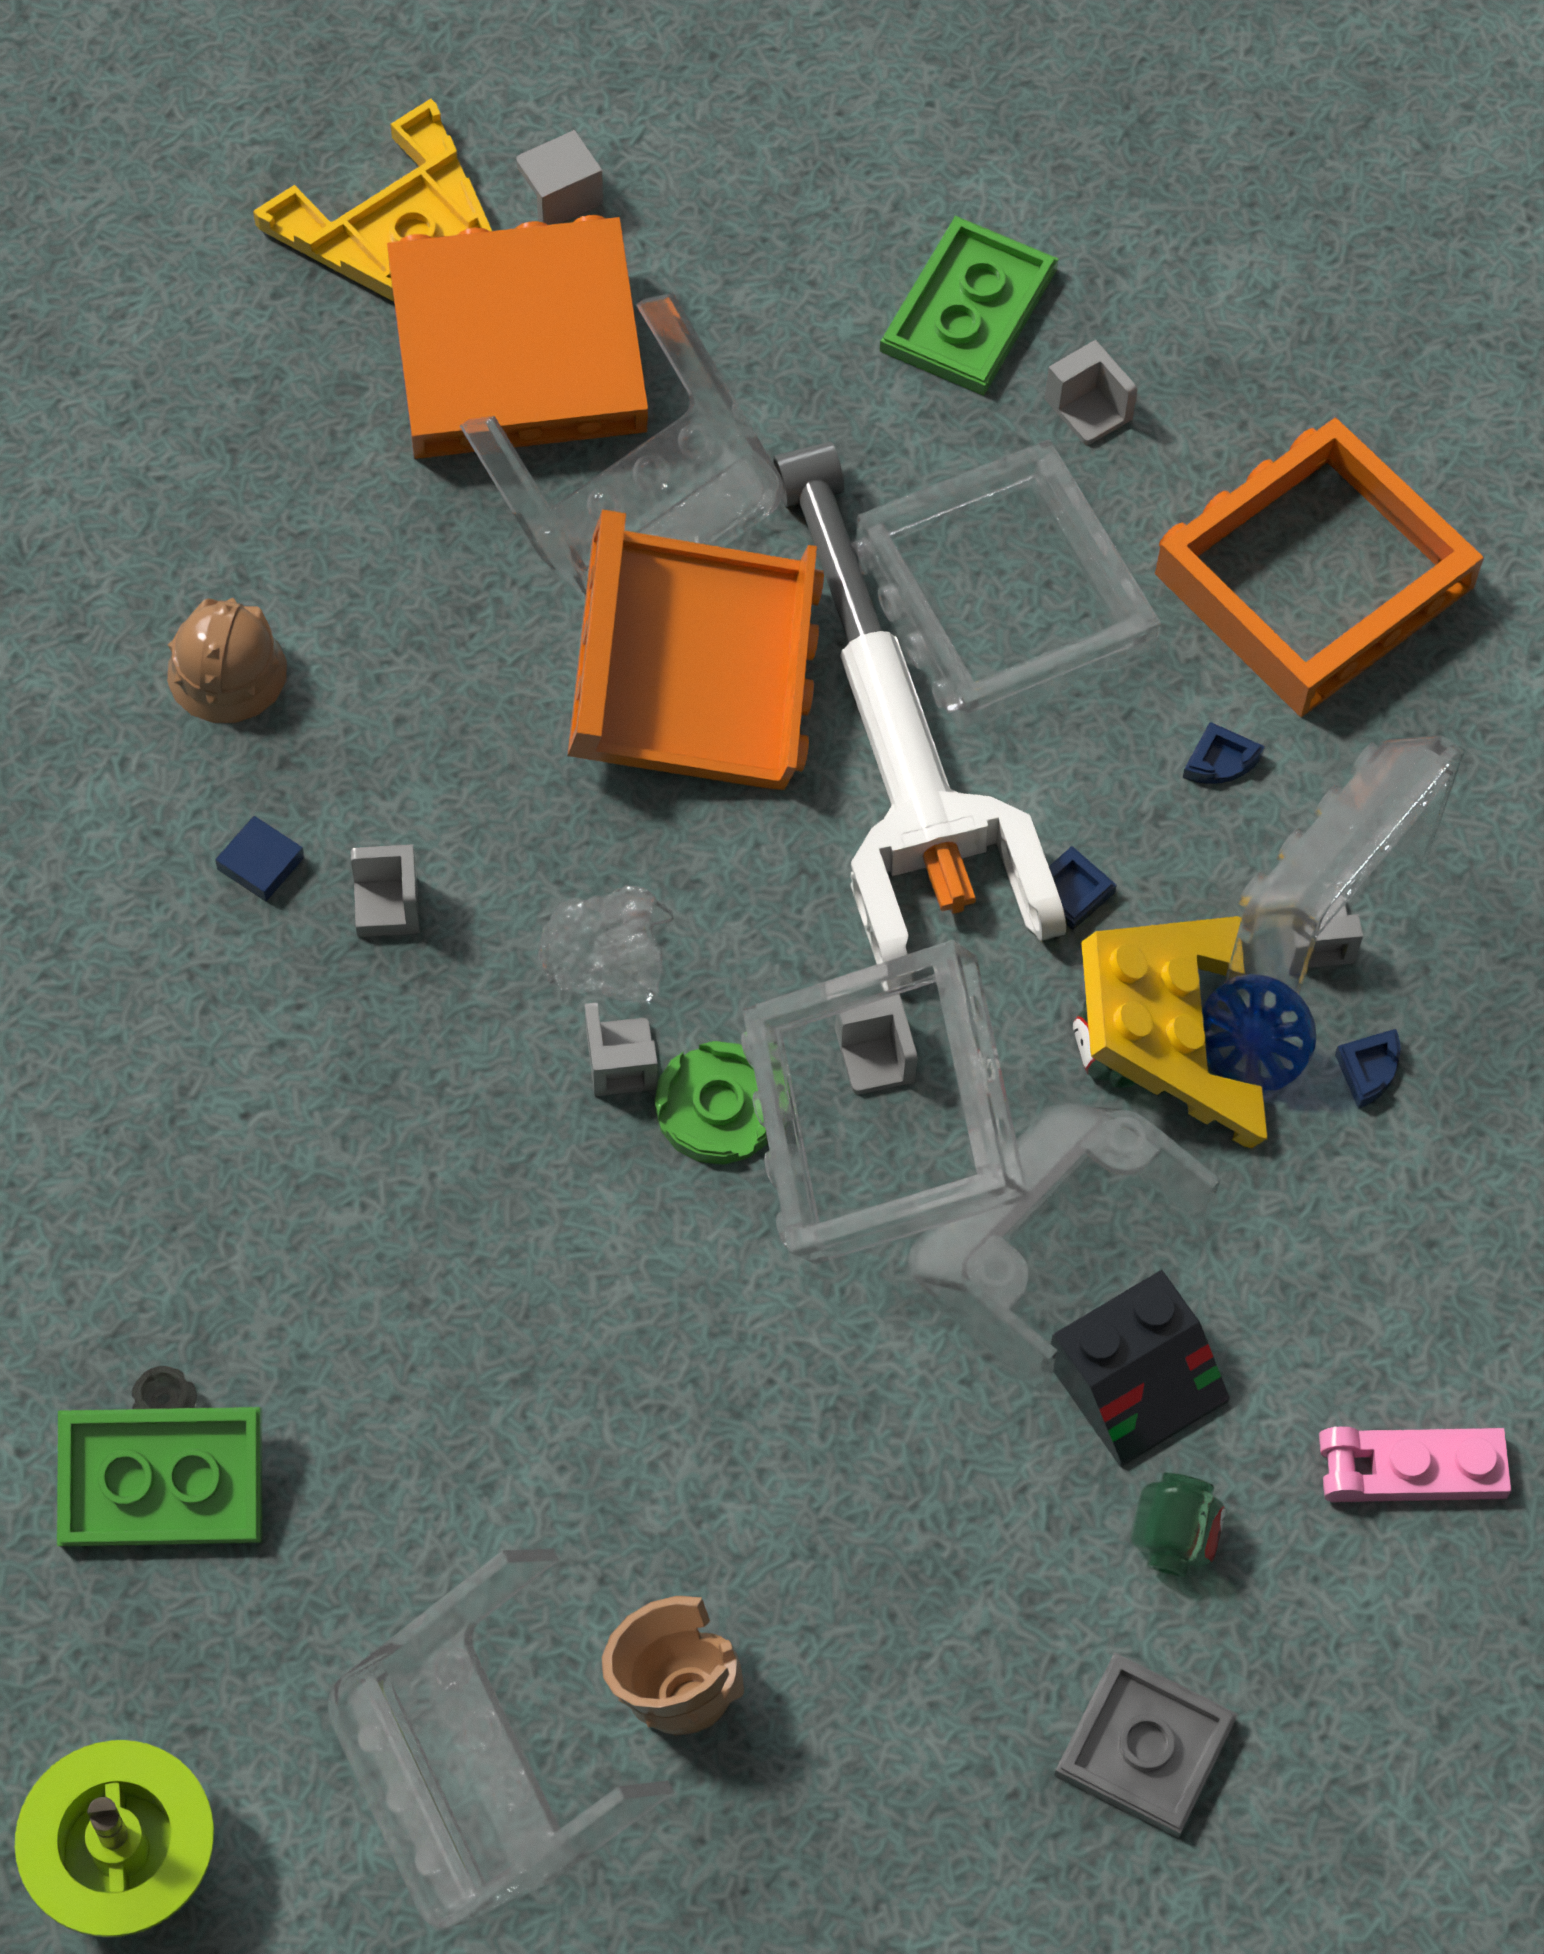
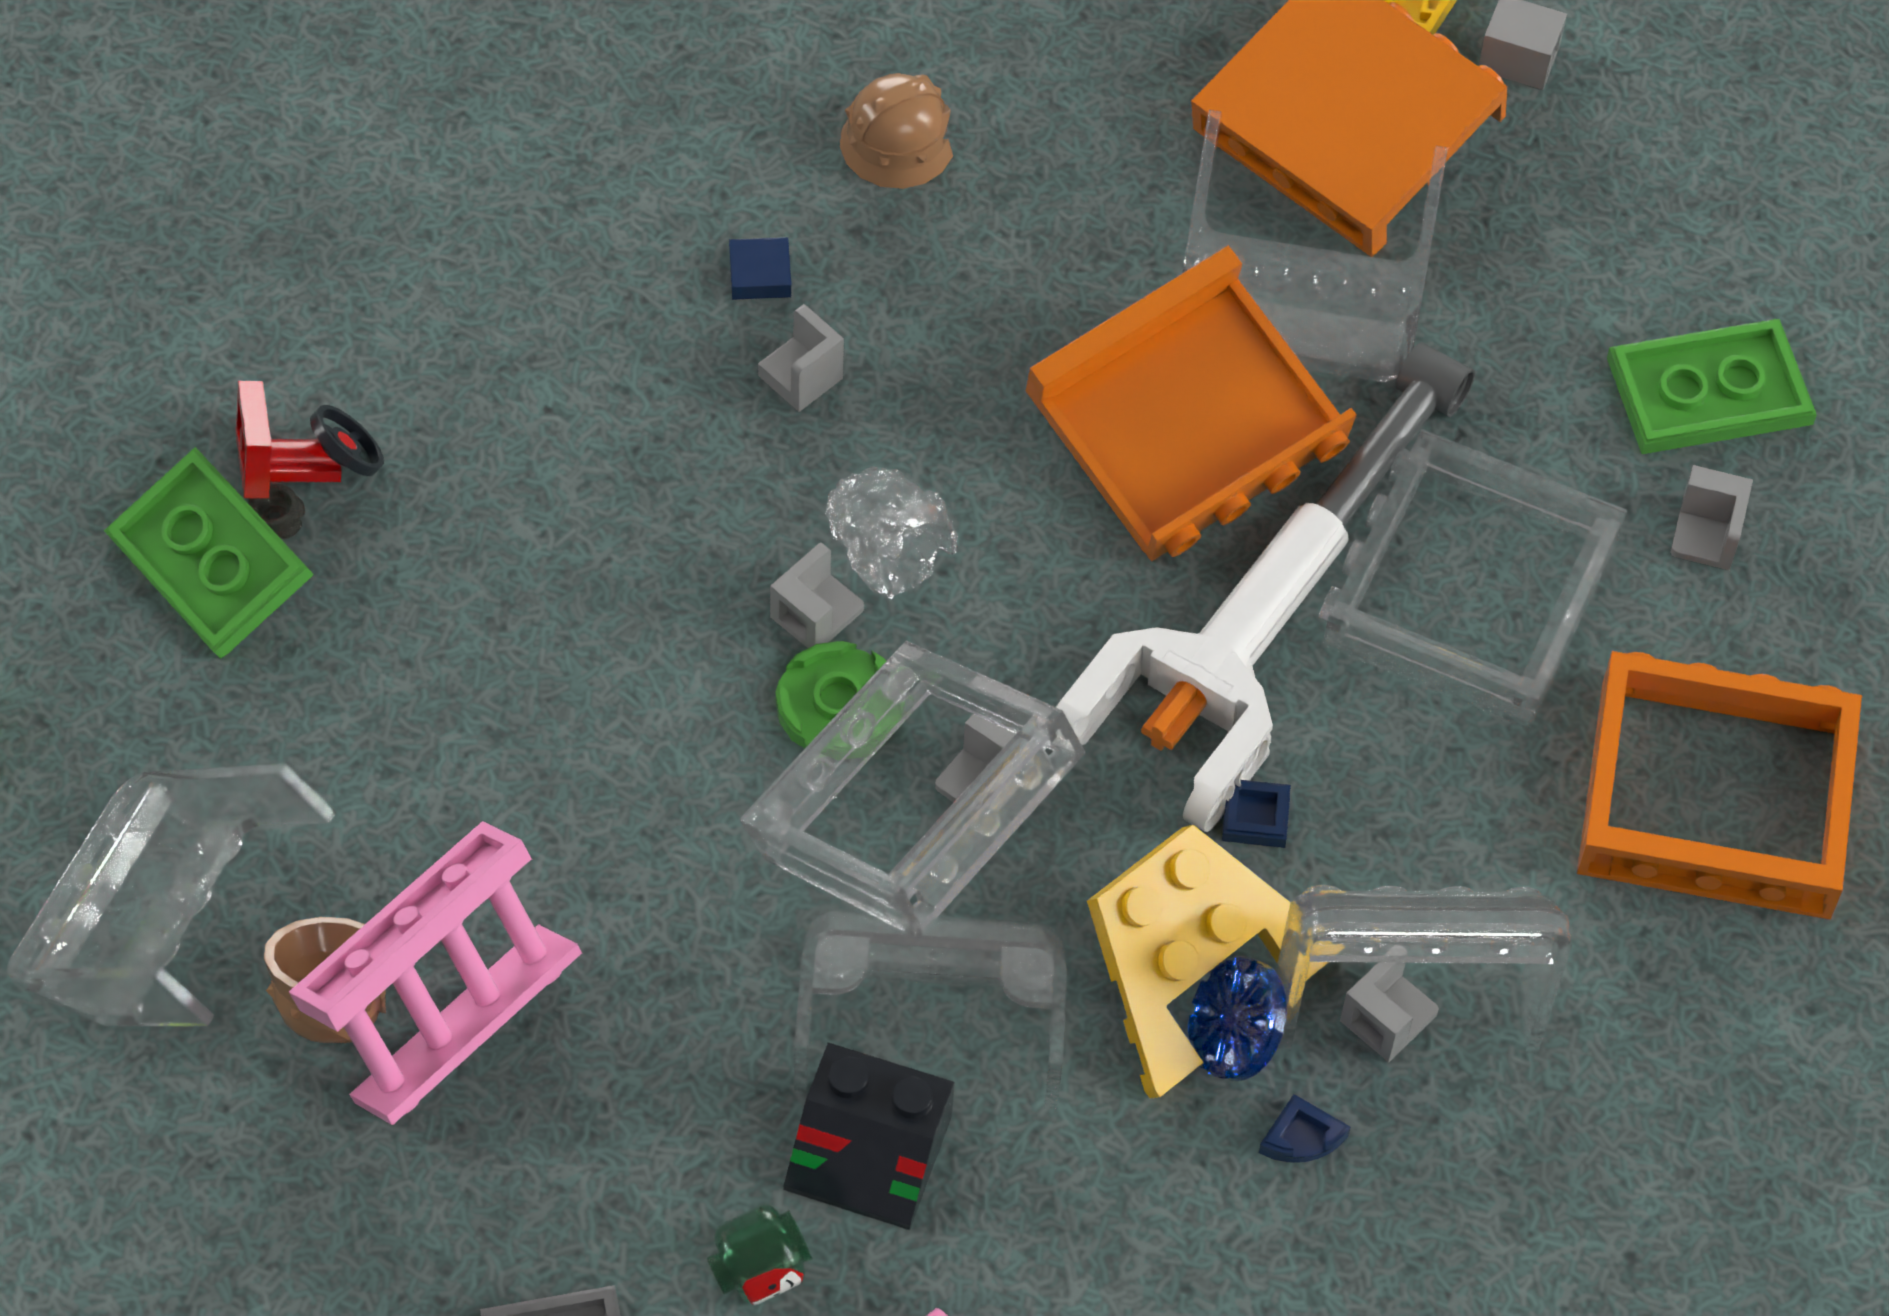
camera: 50 degrees right, 5 degrees down
(118, 1355) = (297, 460): none -> red piece
(751, 1580) = (404, 932): none -> bright pink fence
(1222, 755) = (1480, 836): dark blue tile -> none

